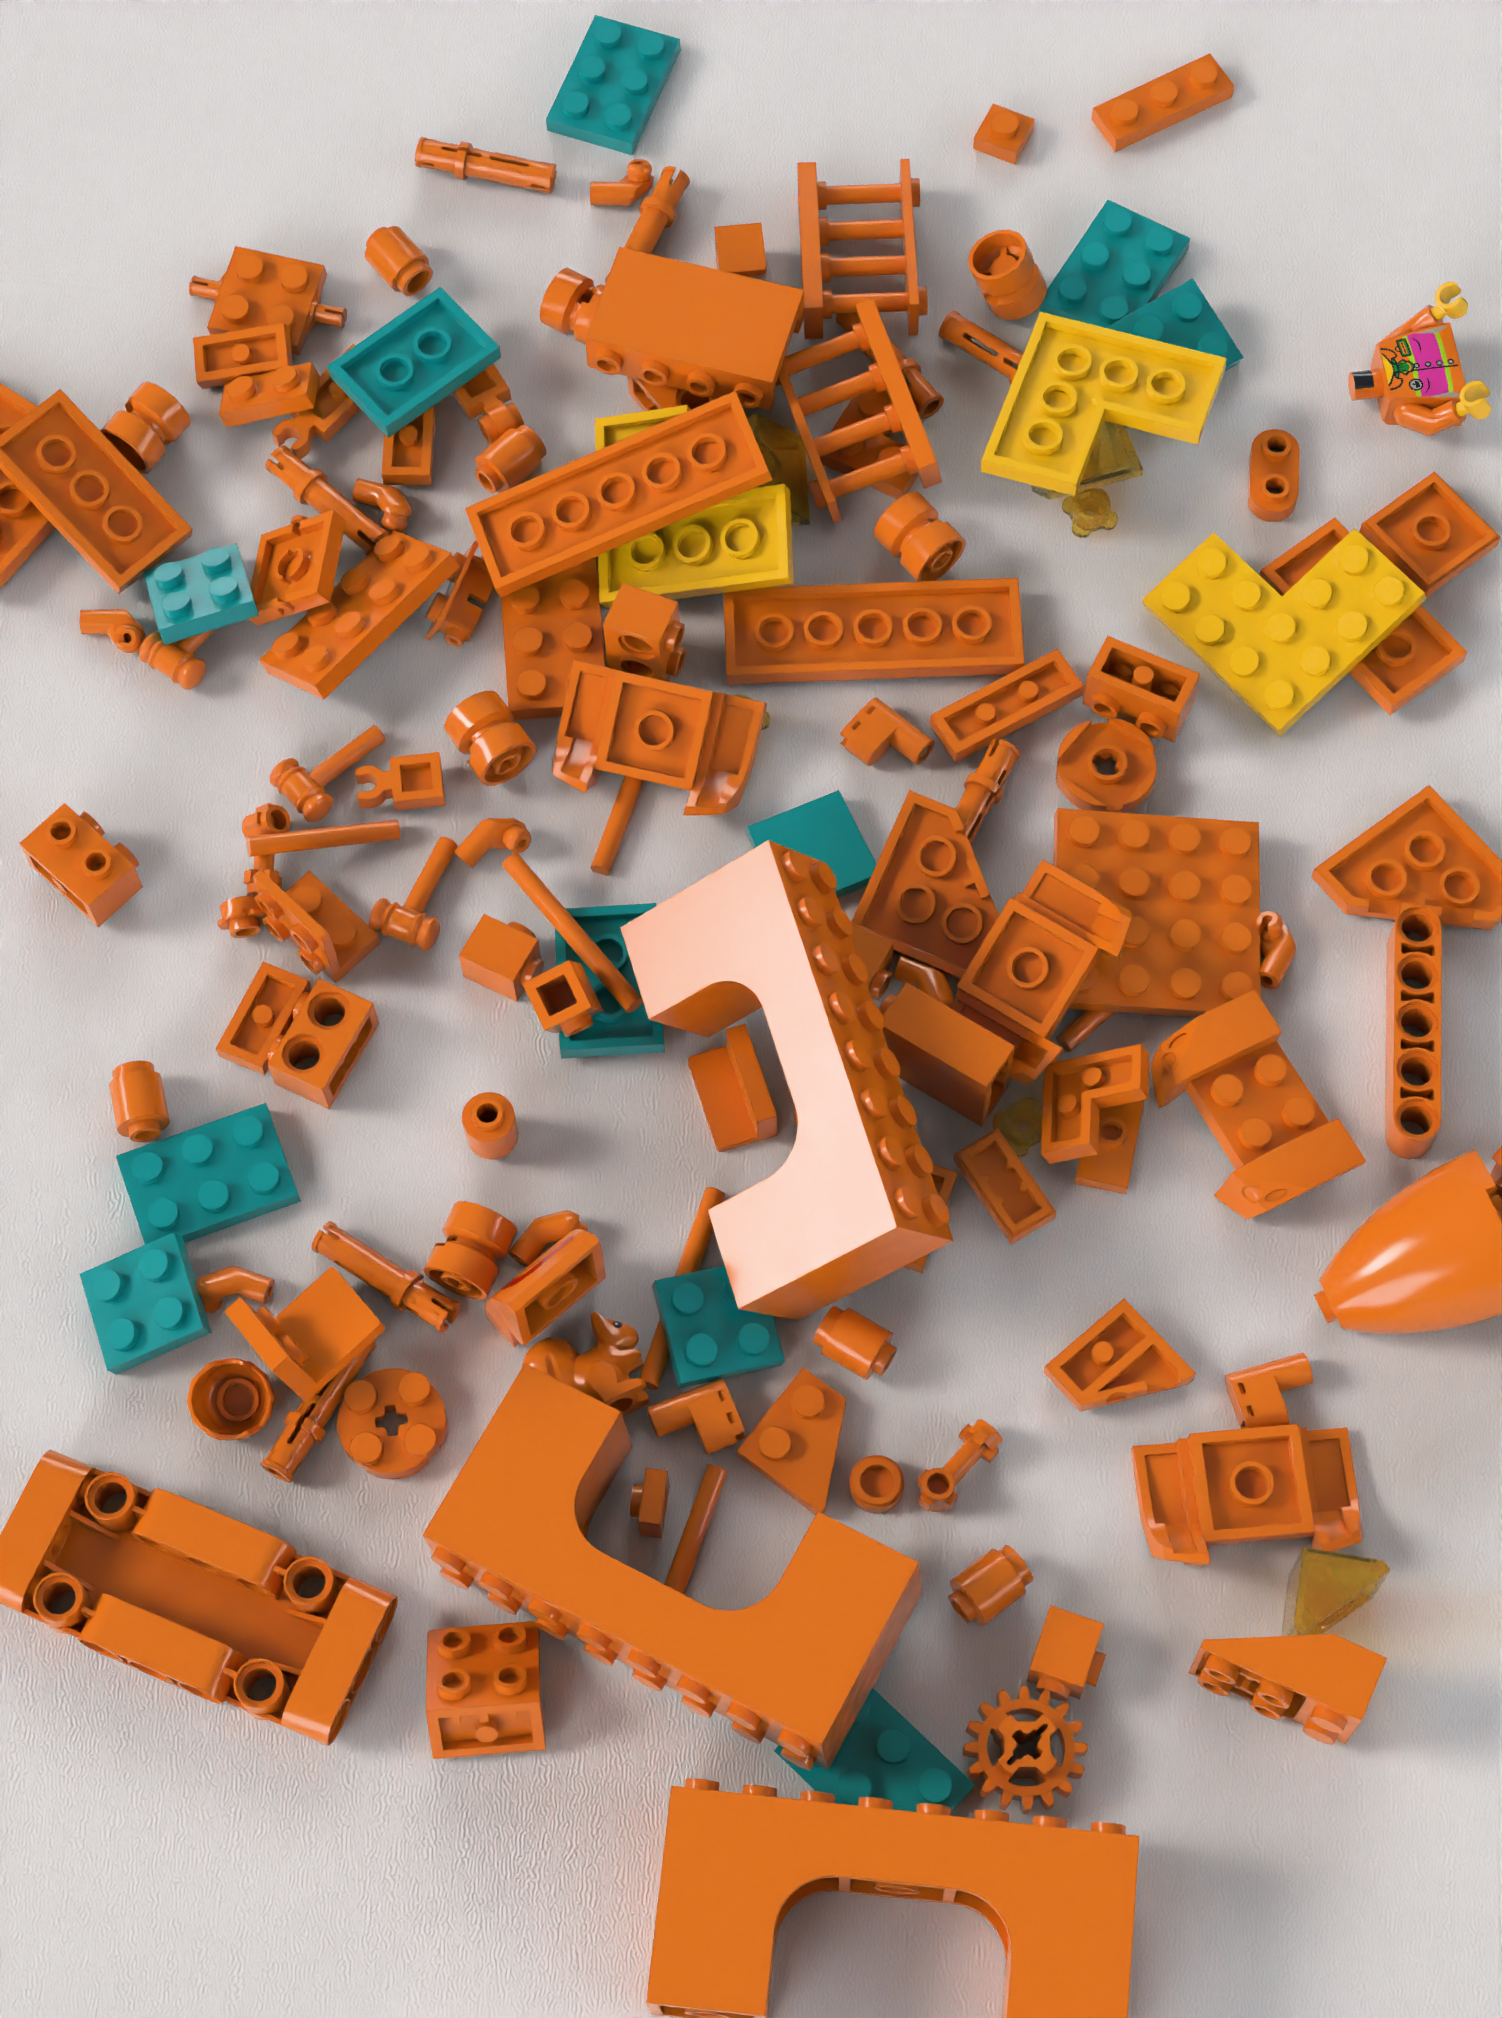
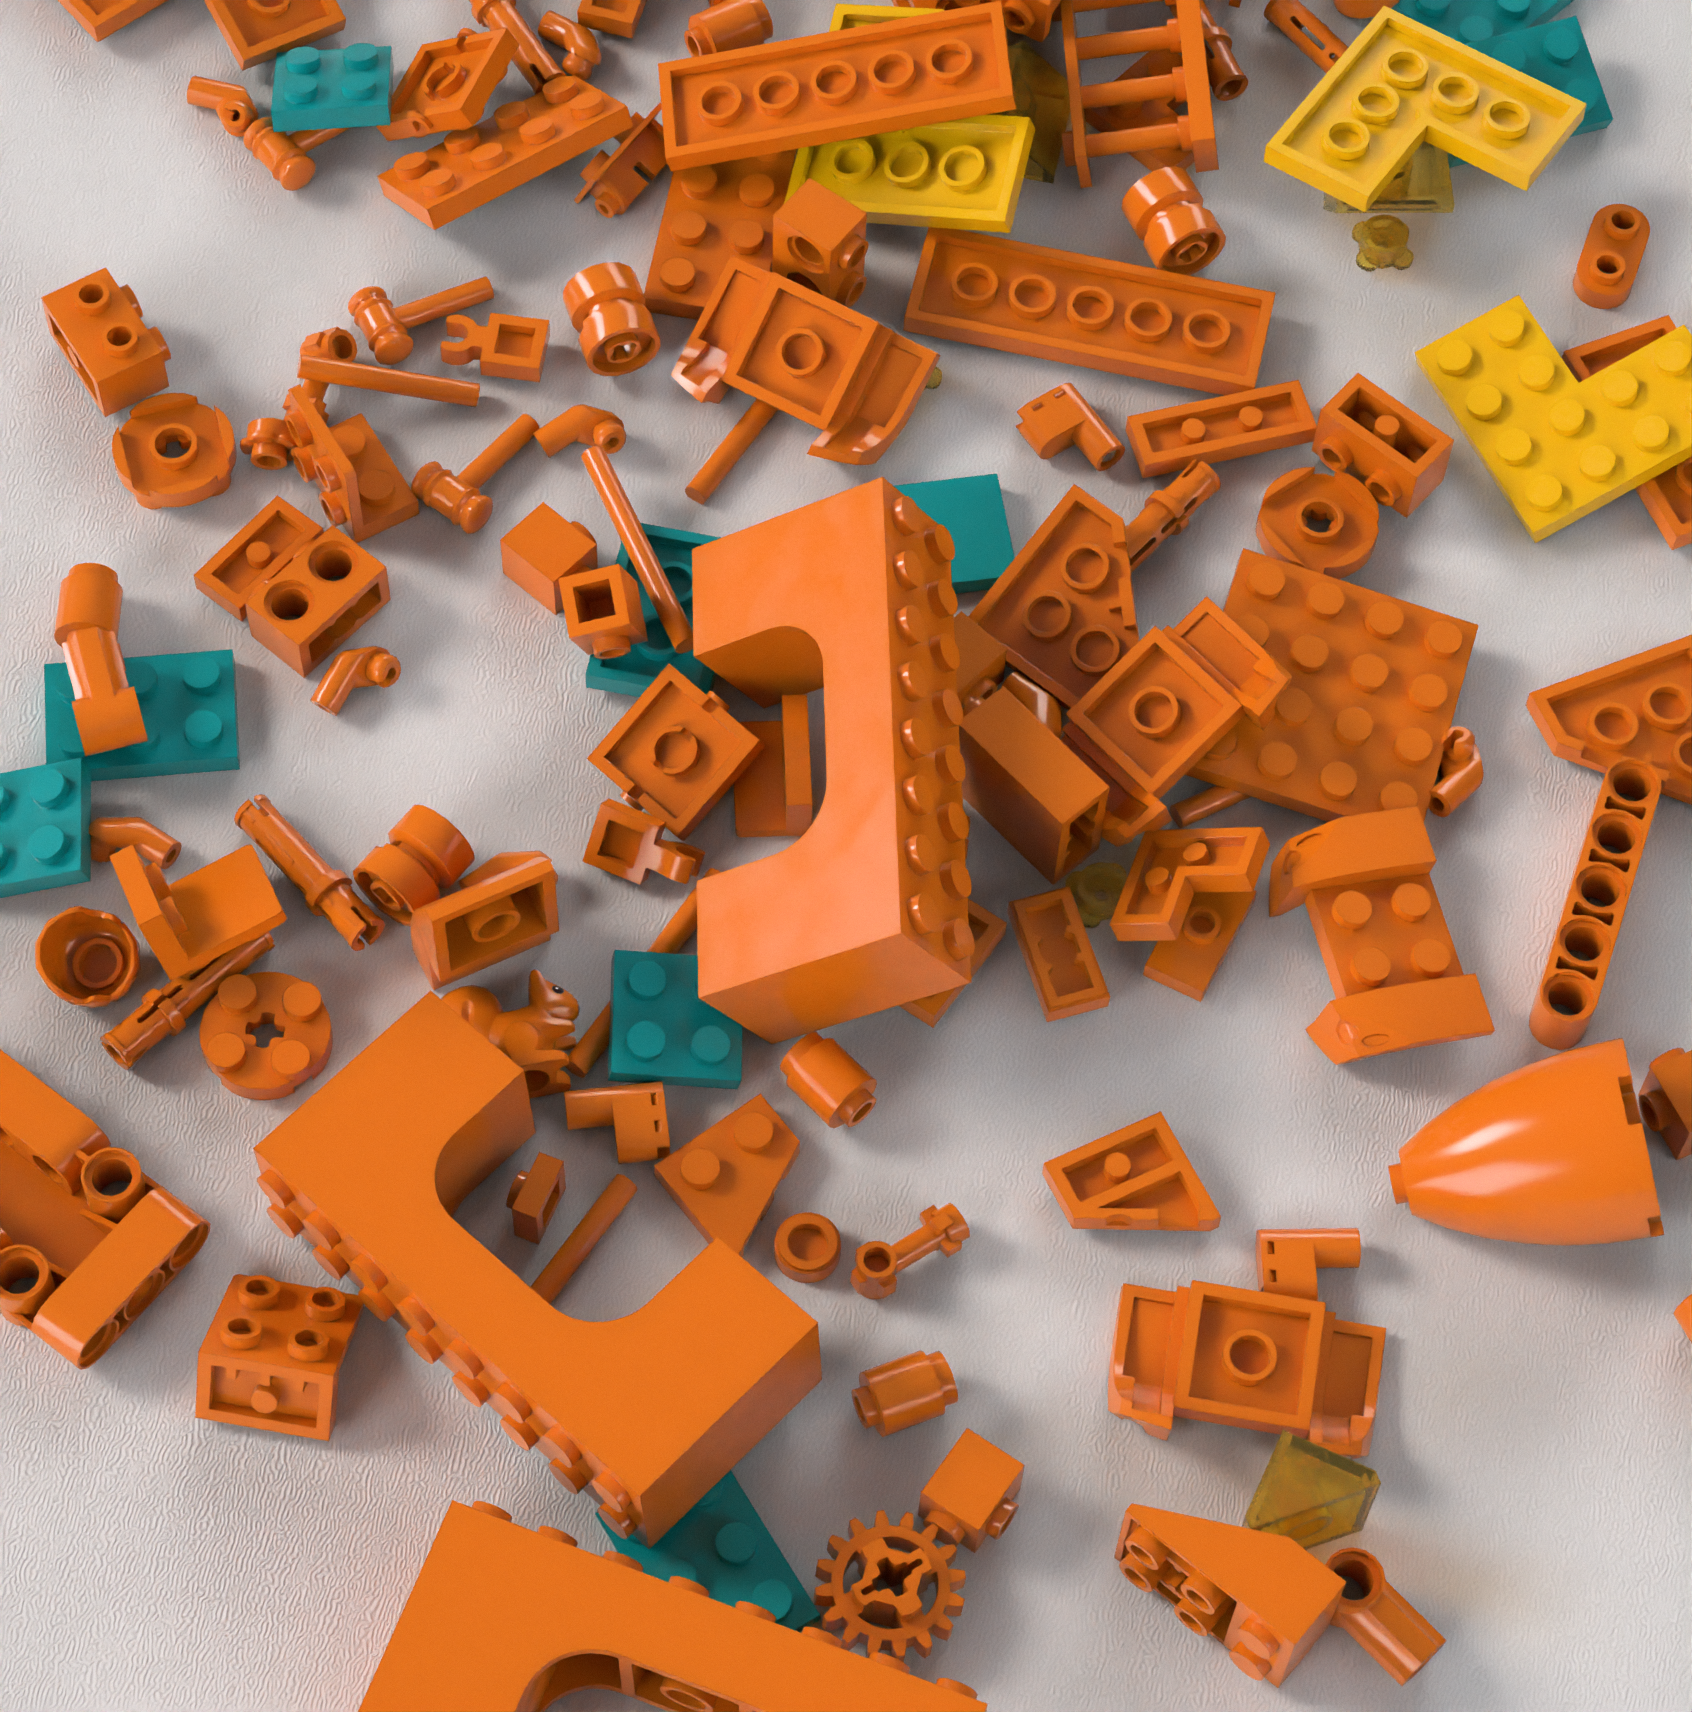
camera: 10 degrees right, 5 degrees down
(171, 970) = (179, 480): none -> orange plate
(180, 1182) = (104, 702): none -> orange piece
(372, 1093) = (355, 670): none -> orange arm
(490, 1125) = (479, 735): orange brick -> none
(637, 1185) = (632, 846): none -> orange plate
(652, 1098) = (676, 752): none -> orange plate
(1414, 1669) = (1383, 1619): none -> orange piece

